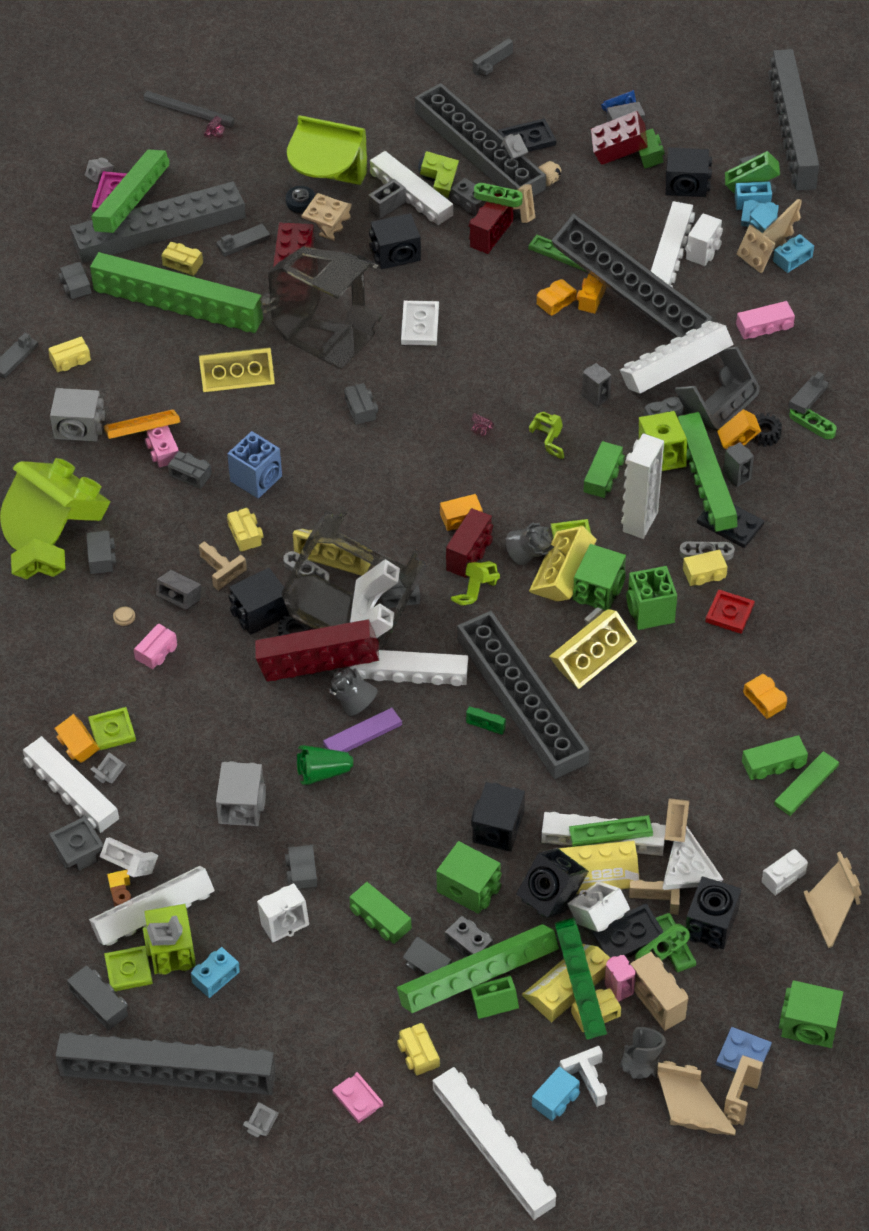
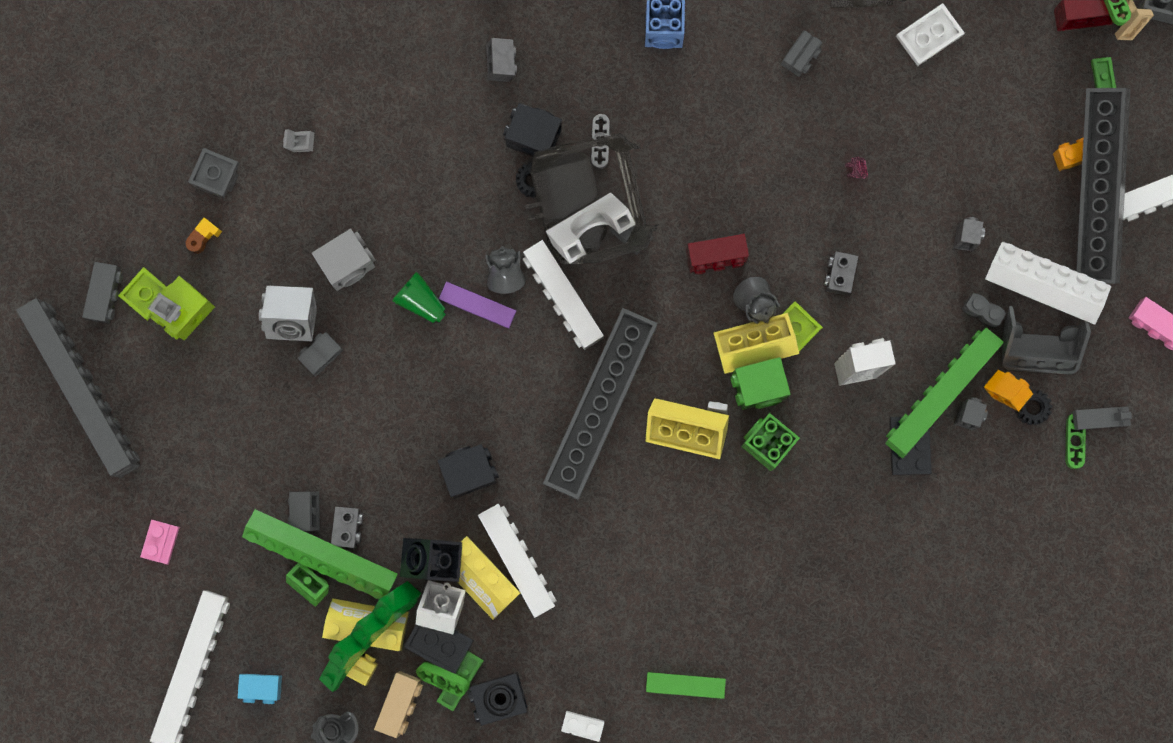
camera: 55 degrees right, 30 degrees up
(70, 784) = (264, 124): white brick -> none
(76, 738) = (305, 96): light orange brick -> none
(112, 728) = (340, 112): lime tile -> none
(124, 616) = (451, 36): tan piece -> none
(129, 858) = (227, 223): white bracket -> none
(130, 915) = (203, 271): white brick -> none
(155, 646) = (436, 85): bright pink brick -> none
(215, 972) = (184, 360): medium azure brick -> none
(225, 570) = (549, 83): tan bracket -> none
(244, 529) = (600, 63): light yellow brick -> none
(249, 858) = (288, 313): none -> brick
(261, 1120) = (87, 488): light grey bracket -> none
(283, 912) = (263, 373): white brick -> none
(317, 650) = (512, 218): dark red brick -> none
(330, 554) = (625, 123): light yellow slope -> none
(380, 913) = (321, 443): bright green brick -> none
(419, 1049) = (227, 558): light yellow brick -> none
(455, 510) = (747, 222): light orange brick -> none
(469, 877) = (396, 489): bright green brick -> none
(478, 574) = (685, 287): lime piece -> none
(486, 720) = (556, 384): green plate -> none
(556, 297) = (1048, 126): light orange brick -> none
(556, 423) = (898, 230): lime piece -> none
(556, 481) = (841, 273): none -> flat silver brick
(584, 1063) = (296, 697): white bracket -> none
(604, 469) = (884, 304): bright green brick -> none
(610, 831) = (515, 568): bright green tile -> none
(620, 977) = (389, 666): bright pink brick -> none
(654, 890) = (497, 640): tan bracket -> none
(667, 428) = (946, 334): lime brick -> none
(676, 820) = (562, 613): tan bracket -> none
(688, 865) = (534, 648): white tile -> none
(692, 546) = (858, 433): light grey beam -> none
(705, 568) = (841, 460): light yellow brick -> none
(730, 611) = (812, 510): red plate -> none
(765, 695) = (746, 597): light orange brick -> none
(774, 757) = (688, 646): bright green brick -> none

